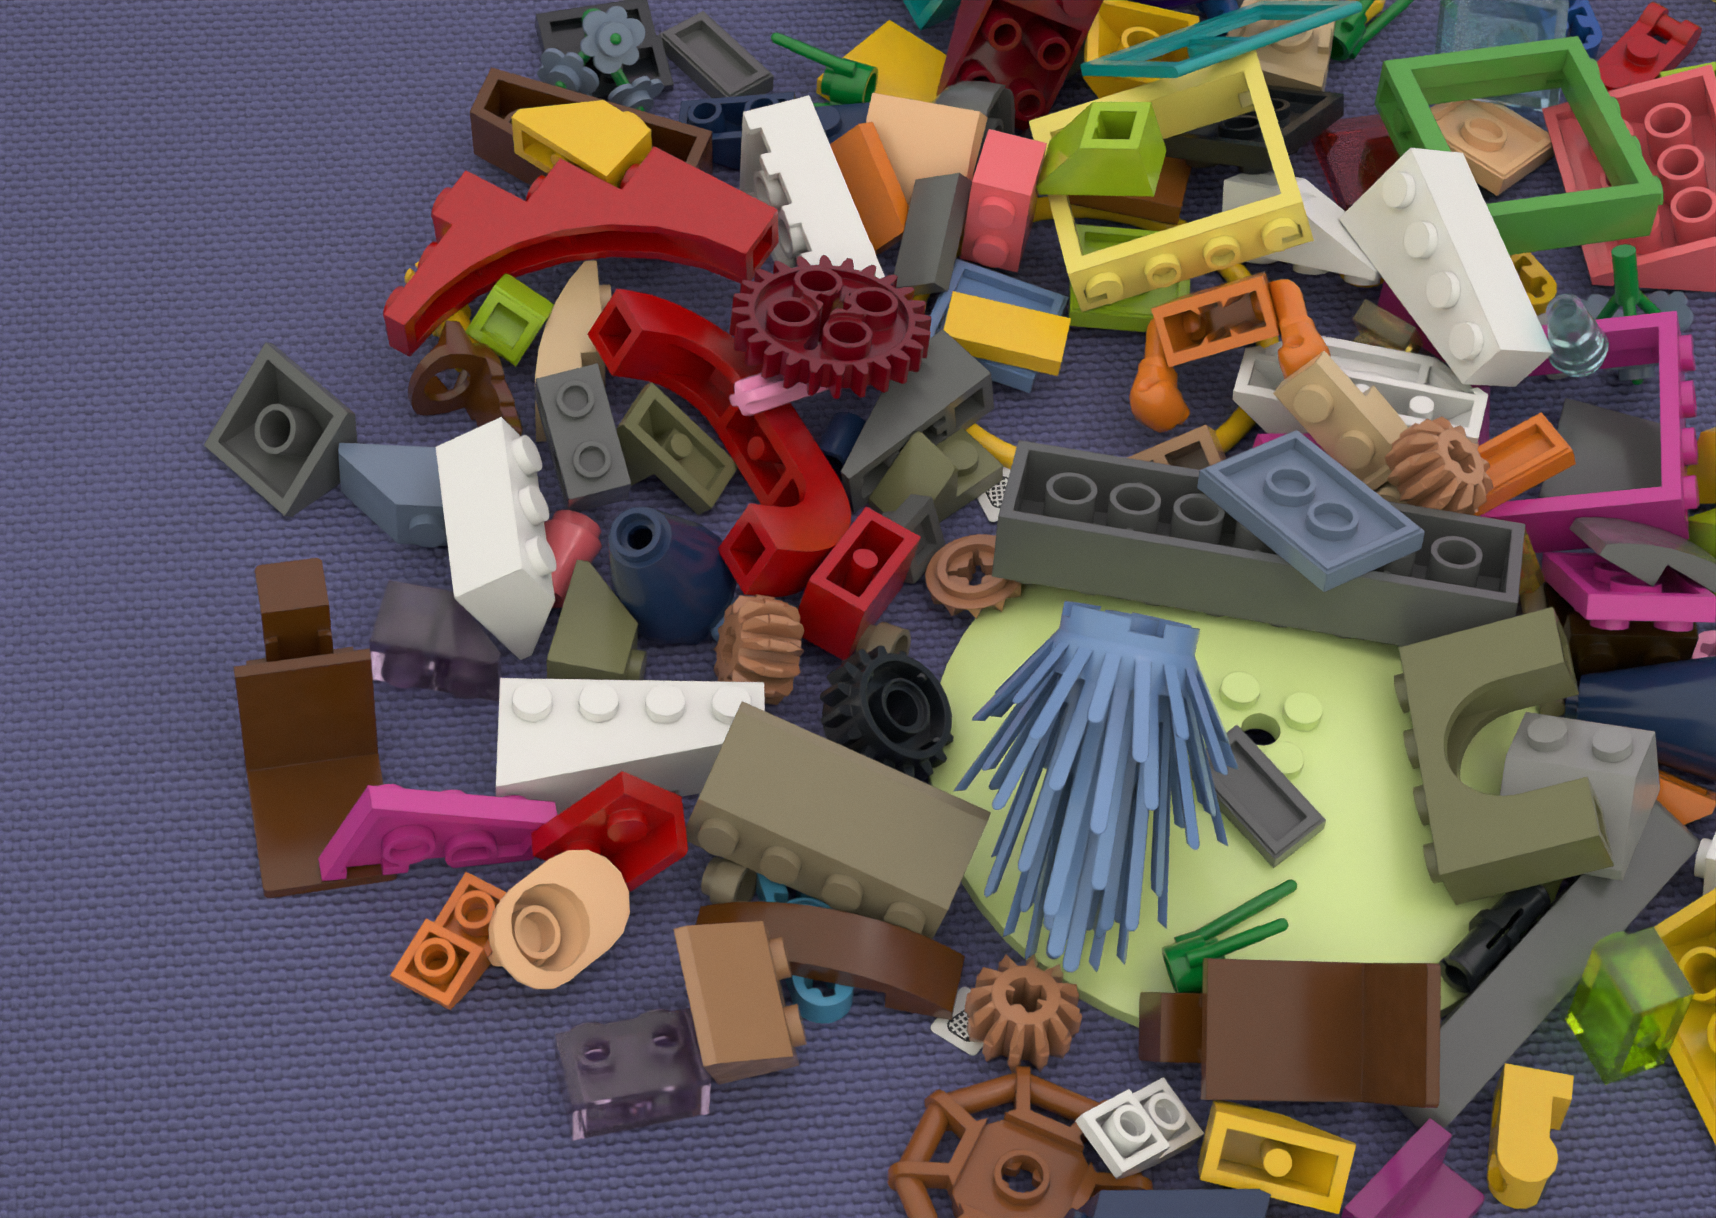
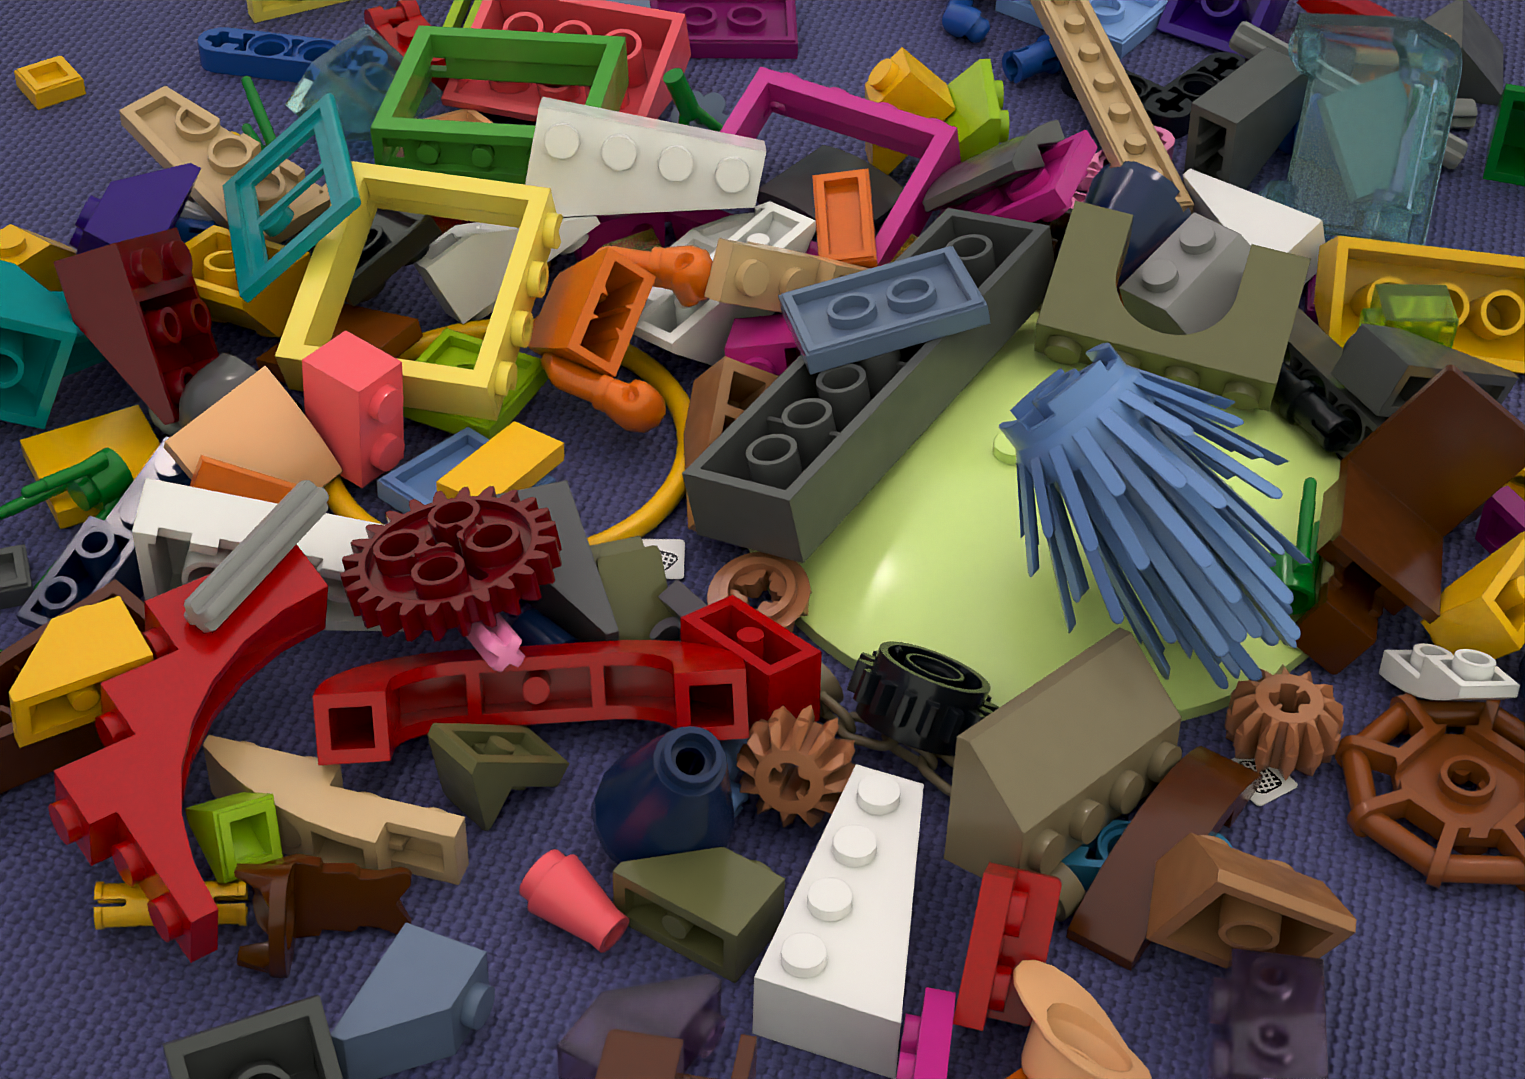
camera: 65 degrees left, 10 degrees down
(498, 532) = (560, 907): white slope -> none
(582, 438) = (478, 801): dark grey brick -> none
(734, 190) = (256, 556): none -> light grey axle
(932, 233) = (349, 471): dark grey tile -> none
(1105, 153) = (397, 286): lime slope -> none
(1439, 468) = (858, 236): nougat gear -> none
(1566, 1017) = (1391, 365): none -> dark grey slope
(1574, 337) = (758, 118): clear light blue cone -> none

